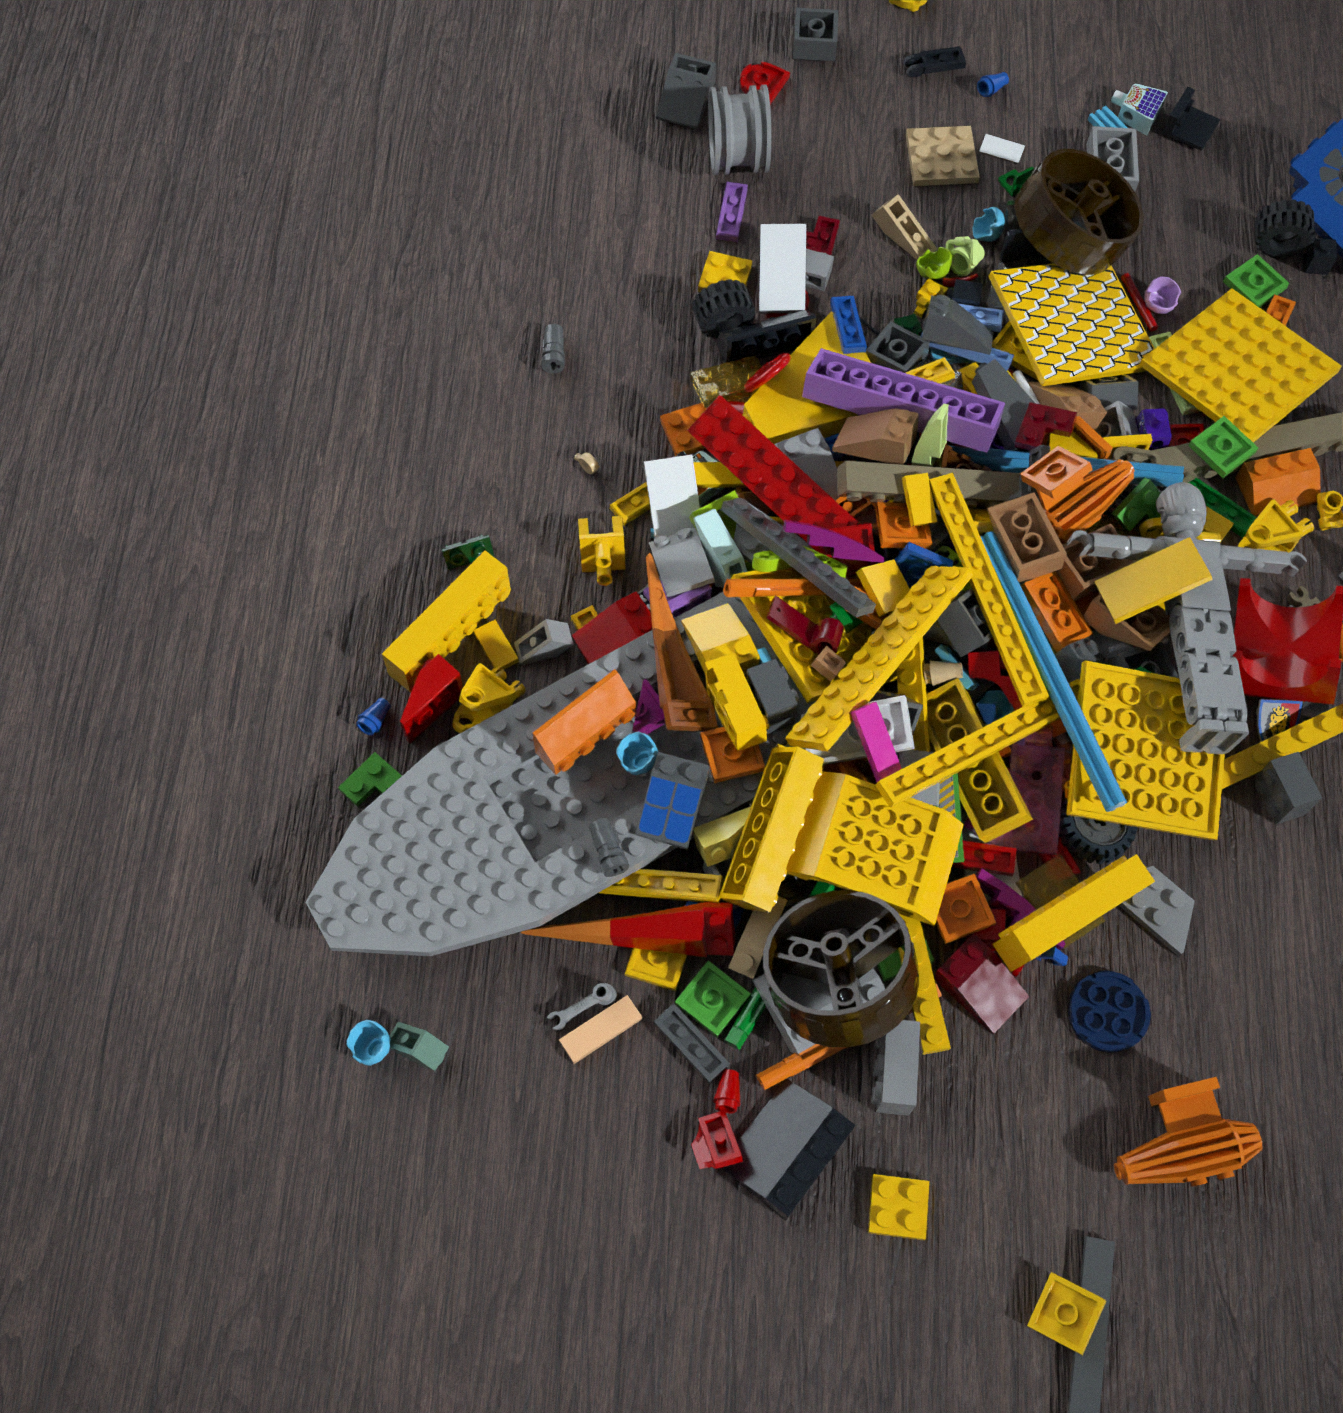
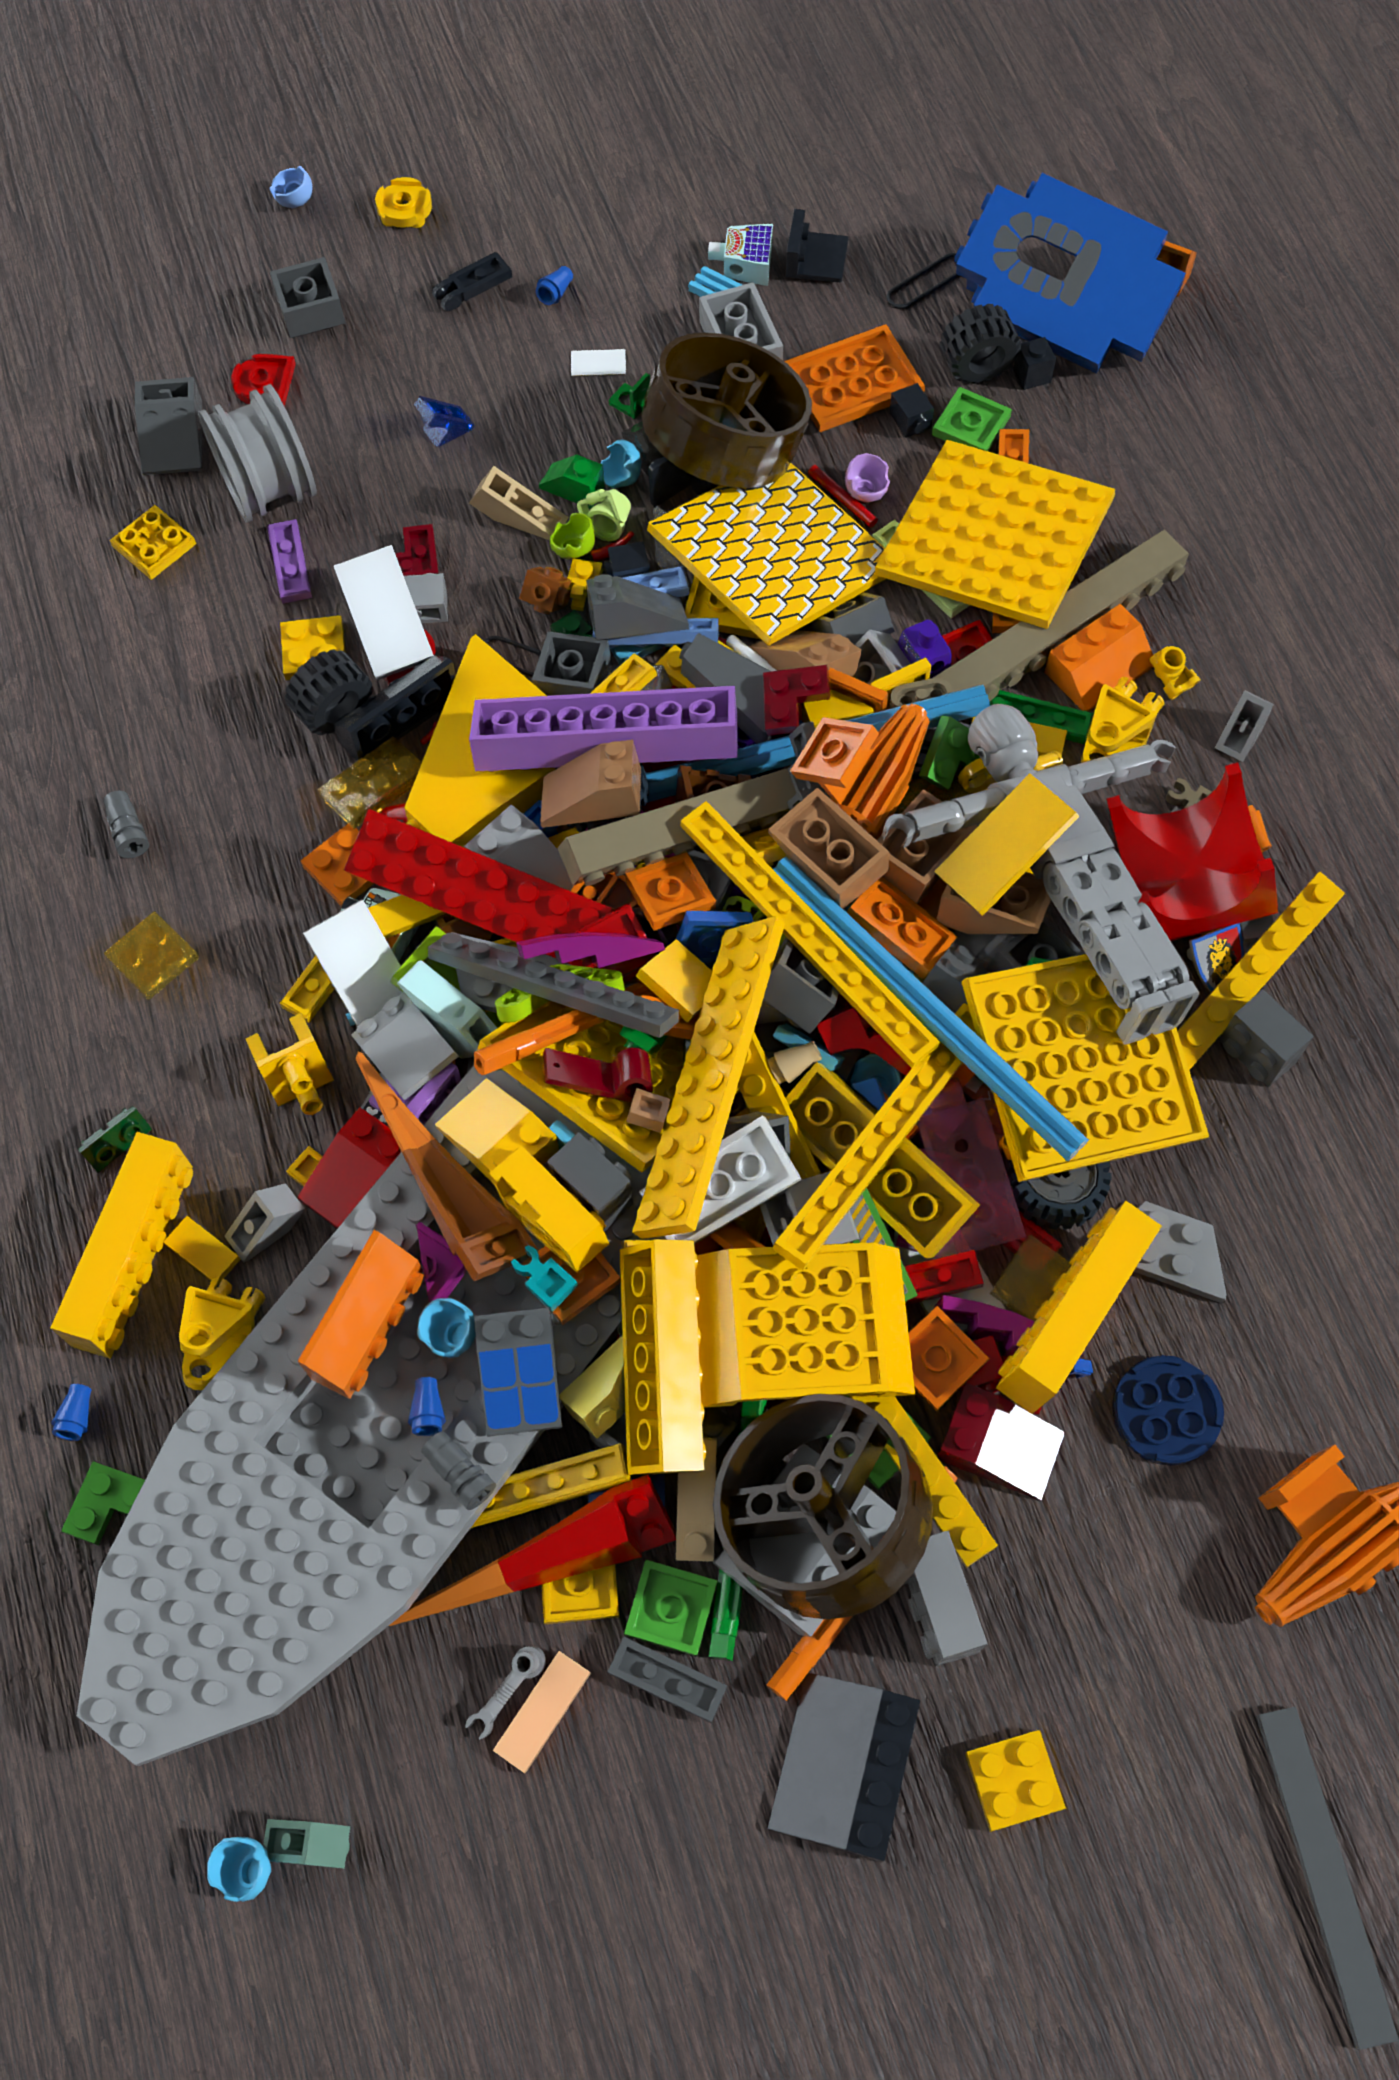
camera: 20 degrees left, 0 degrees up
(432, 695) = (140, 1353): red slope -> none
(537, 441) = (151, 955): none -> clear yellow plate
(587, 462) = (228, 958): tan piece -> none
(602, 801) = (426, 1409): none -> blue cone
(645, 166) = (153, 542): none -> yellow tile
(715, 749) = (547, 1281): none -> teal plate
(715, 1142) = (751, 1801): red slope -> none
(728, 1092) = (741, 1727): red cone -> none
(767, 372) = (418, 755): red plate -> none
(848, 324) = (496, 655): blue tile -> none
(875, 151) = (442, 420): none -> clear blue slope
(876, 740) = (750, 1190): dark pink tile -> none
(901, 292) = (546, 589): none -> dark orange brick
(919, 499) = (677, 851): yellow tile -> none
(932, 439) = (662, 767): yellowish green slope -> none
(942, 155) = (528, 397): tan plate -> none
(951, 223) = (573, 478): none -> green slope
(1066, 1313) = (1276, 1828): yellow plate -> none
(1184, 222) = (854, 376): none -> orange plate
(1214, 259) = (911, 410): none -> black brick
(1223, 446) = (1018, 641): bright green plate -> none
(1259, 164) = (903, 306): none -> black piece

